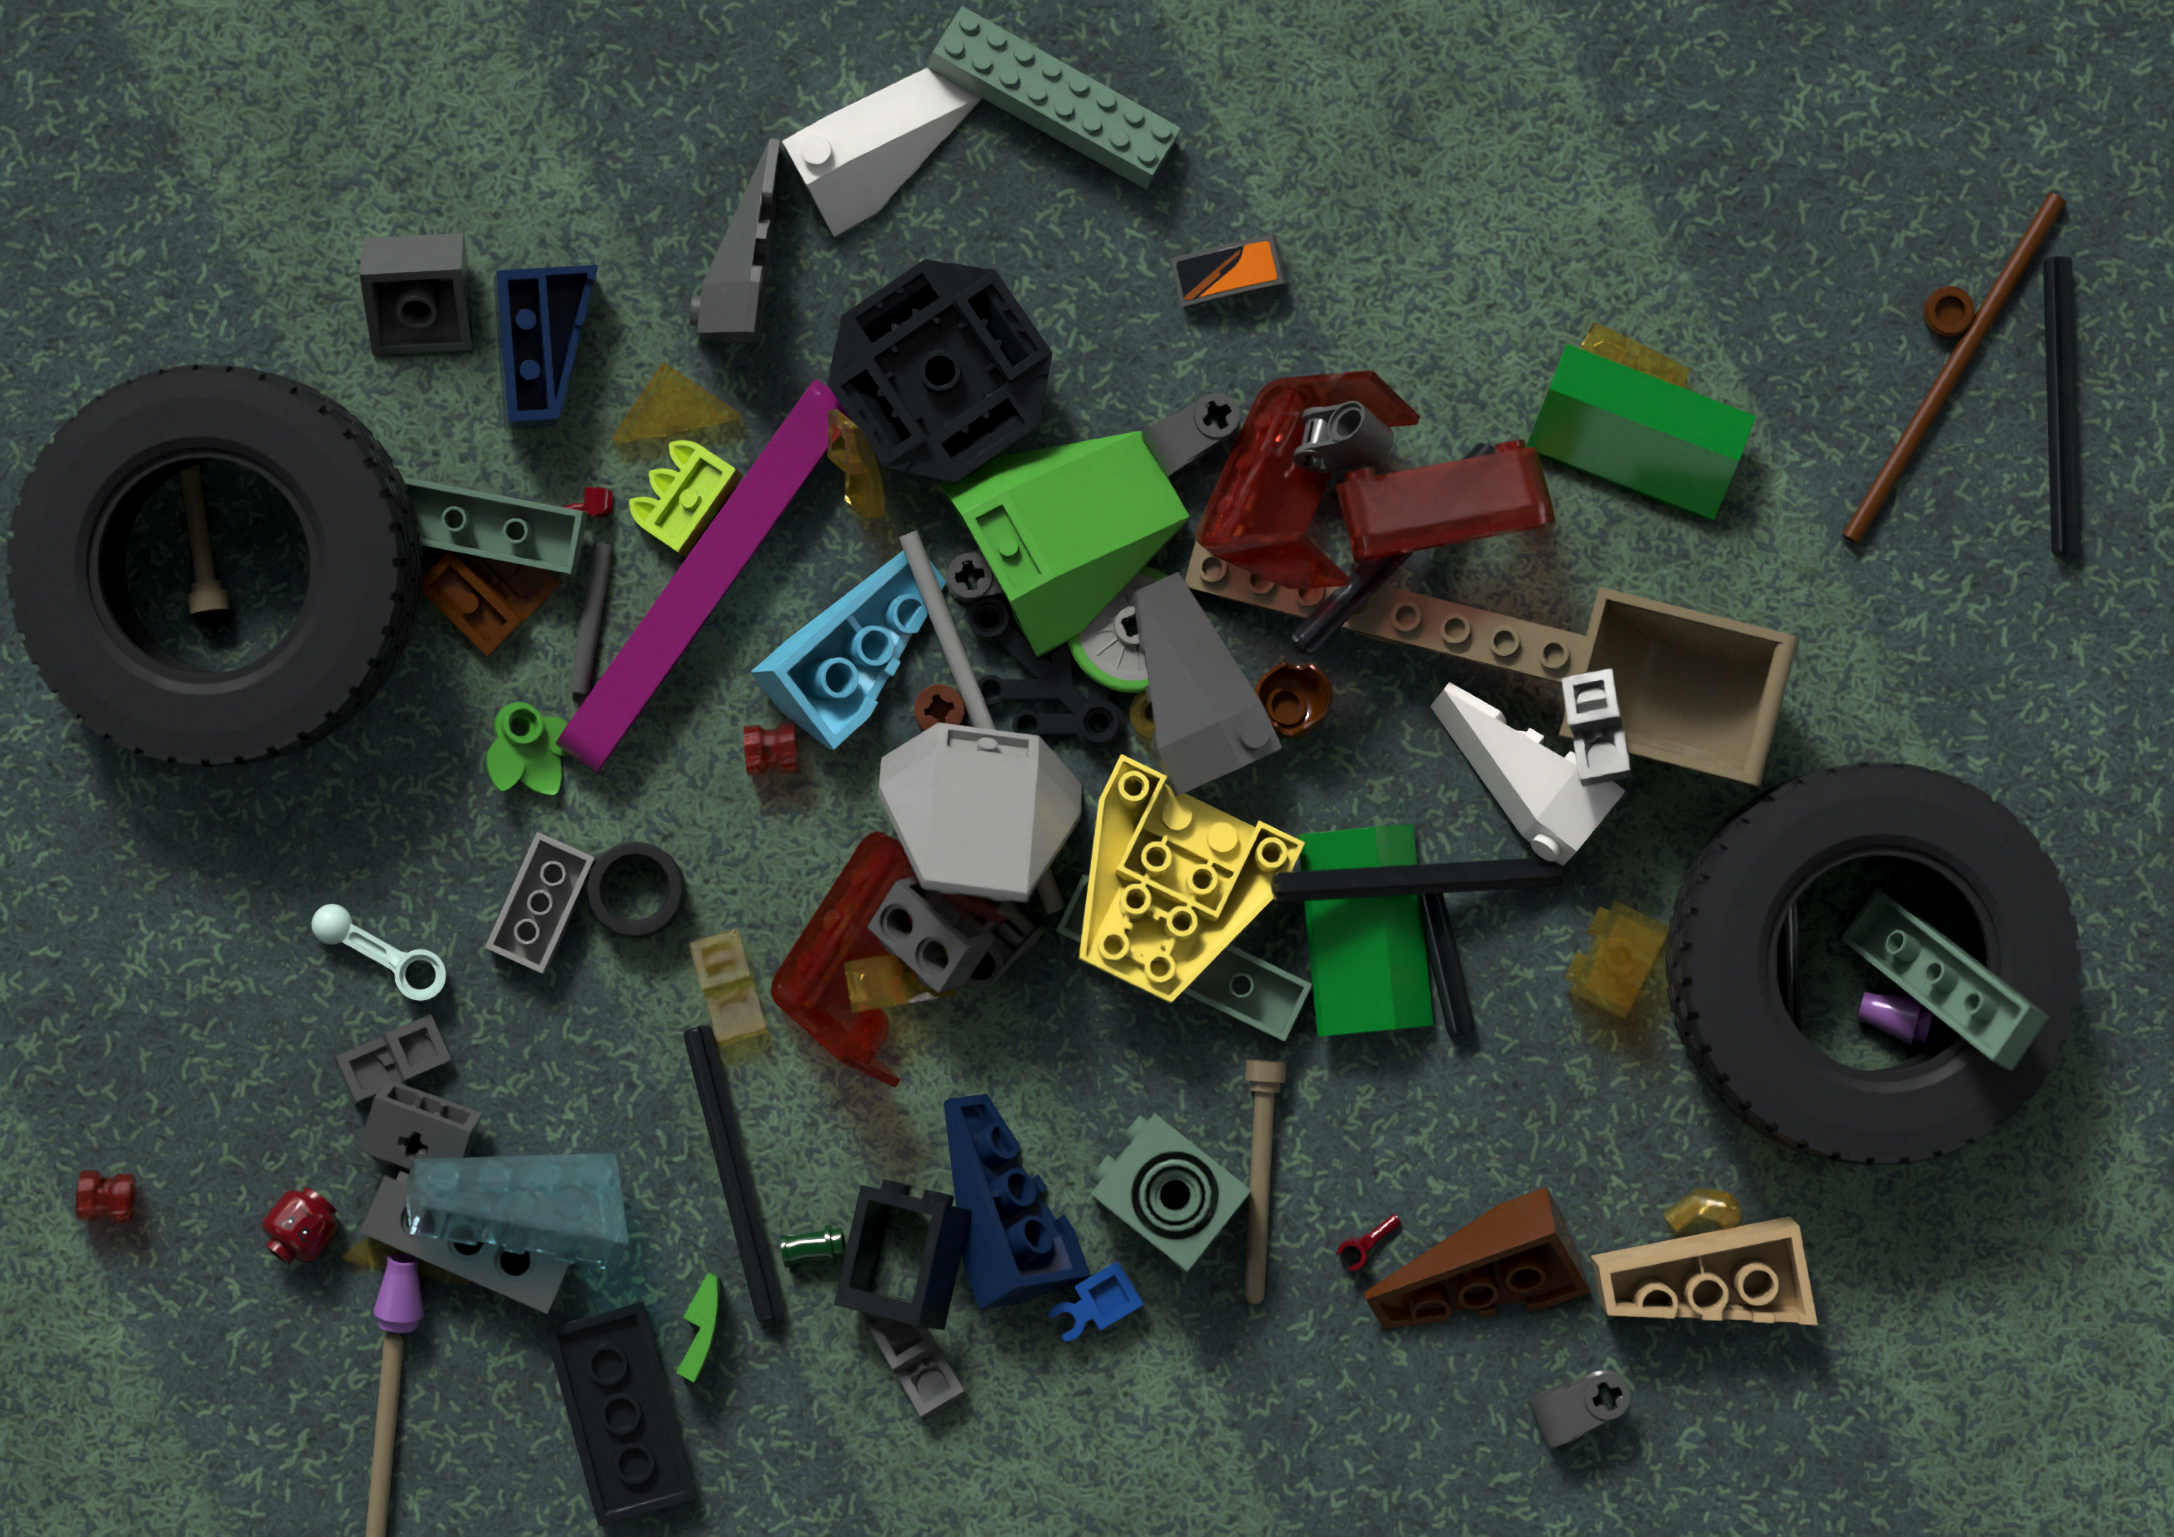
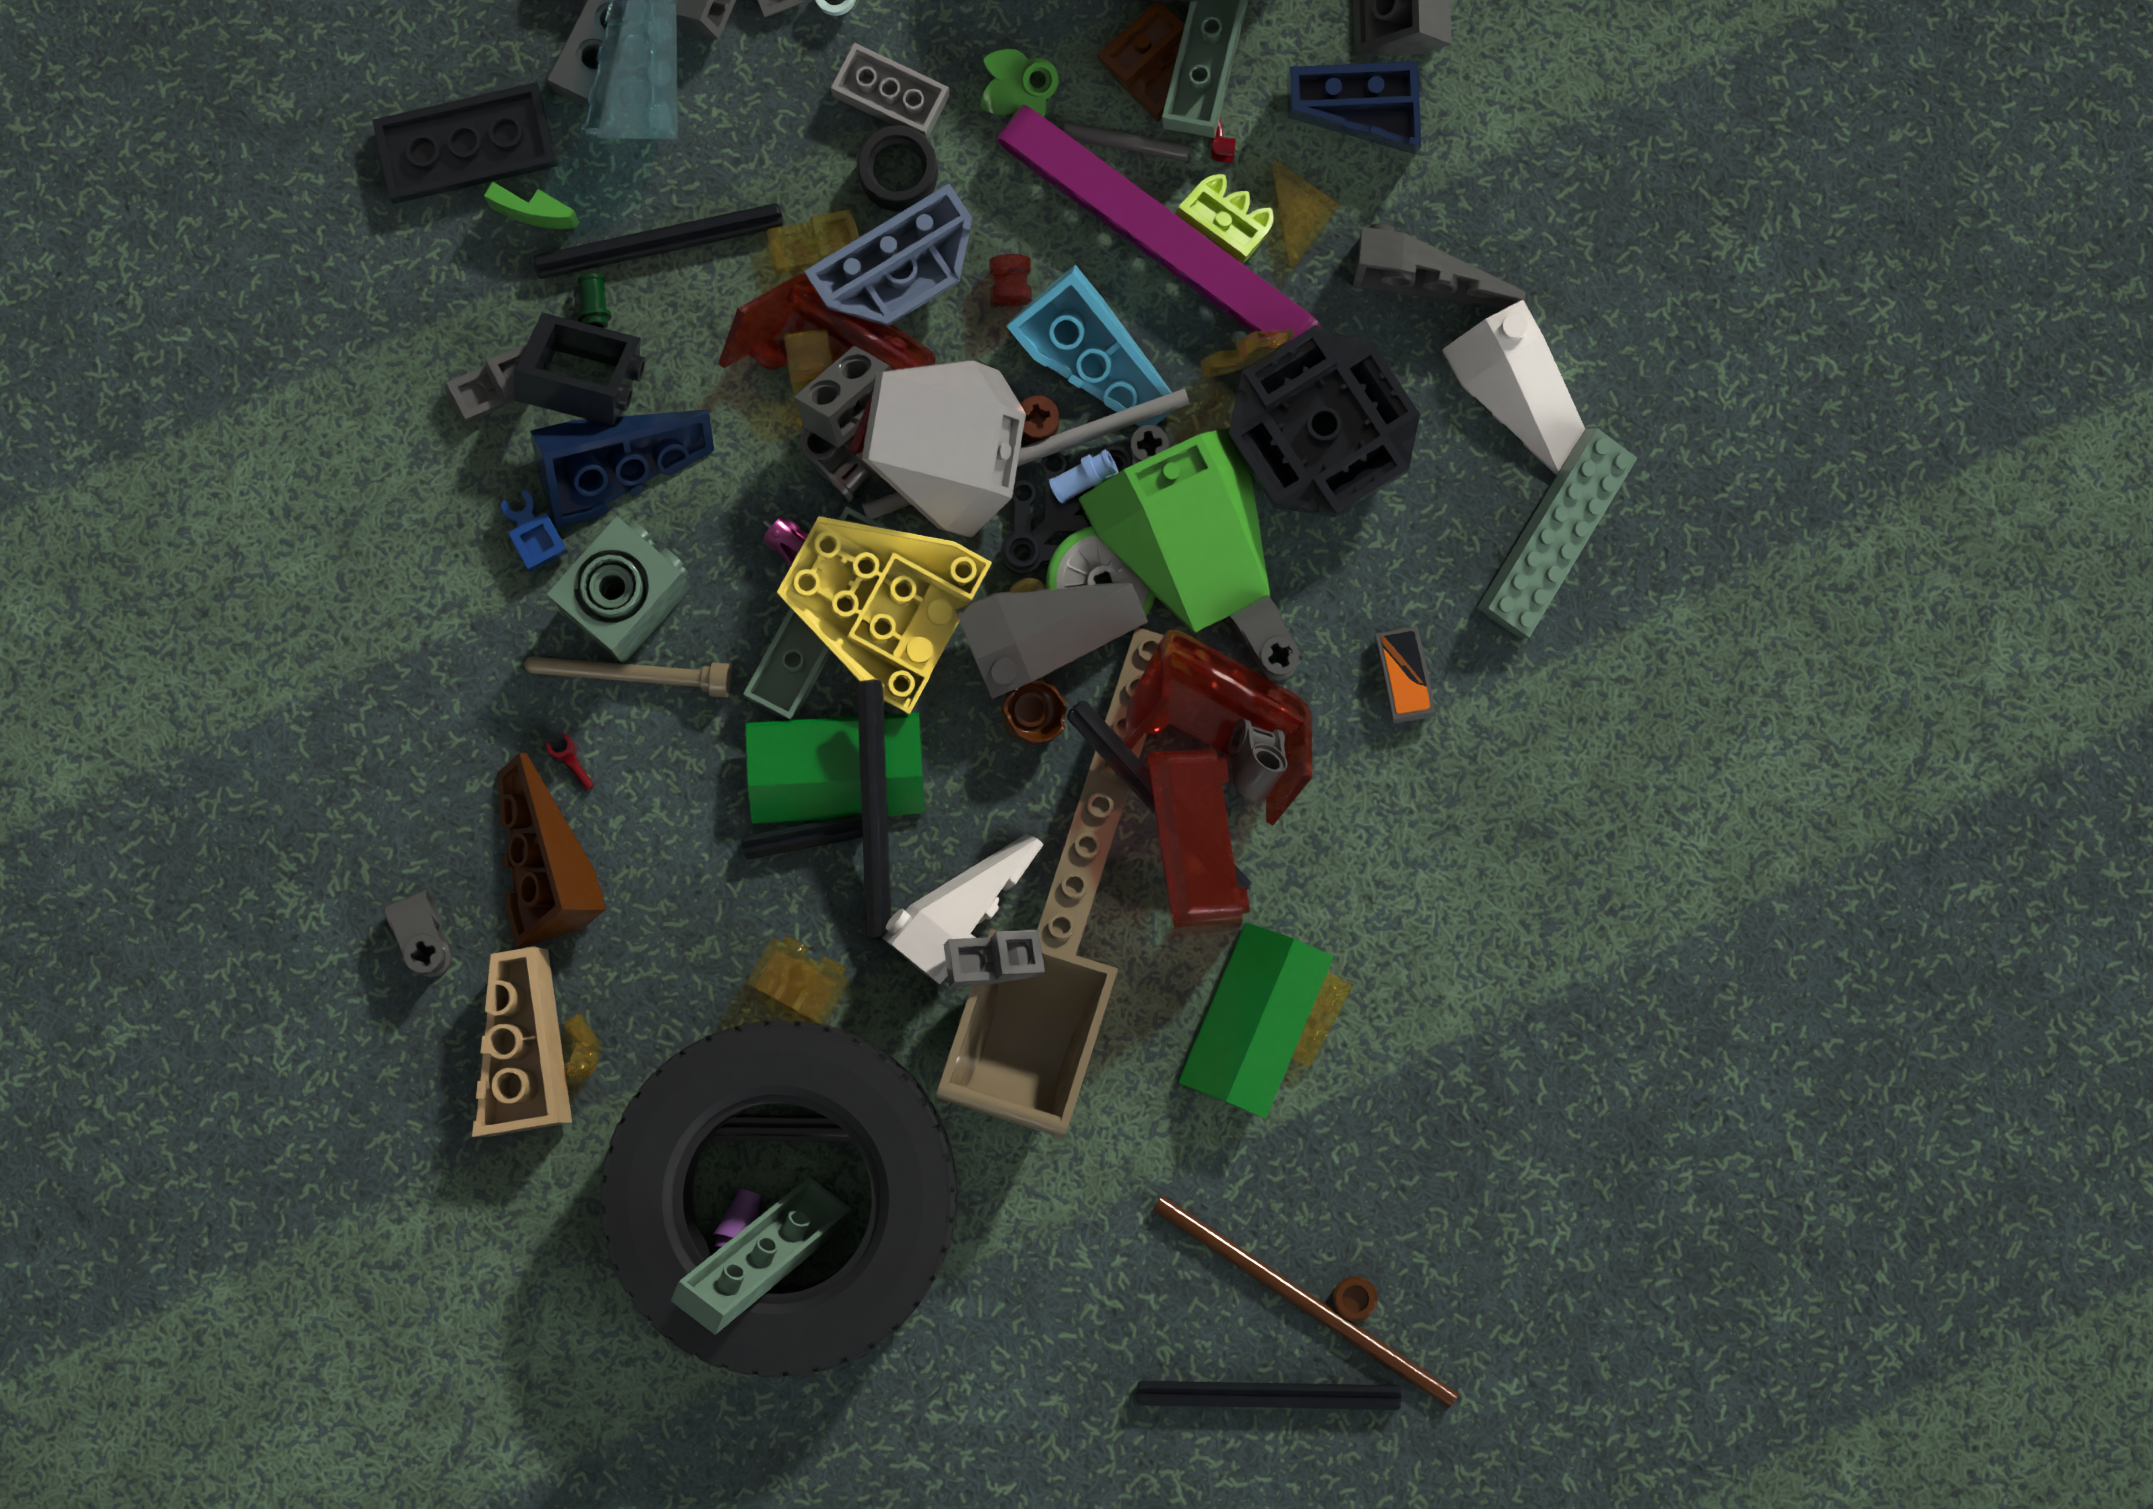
camera: 90 degrees right, 5 degrees down
(760, 880) = (898, 261): none -> sand blue wedge
(1007, 645) = (1084, 476): none -> light blue pin
(1096, 998) = (784, 535): none -> flat silver piece

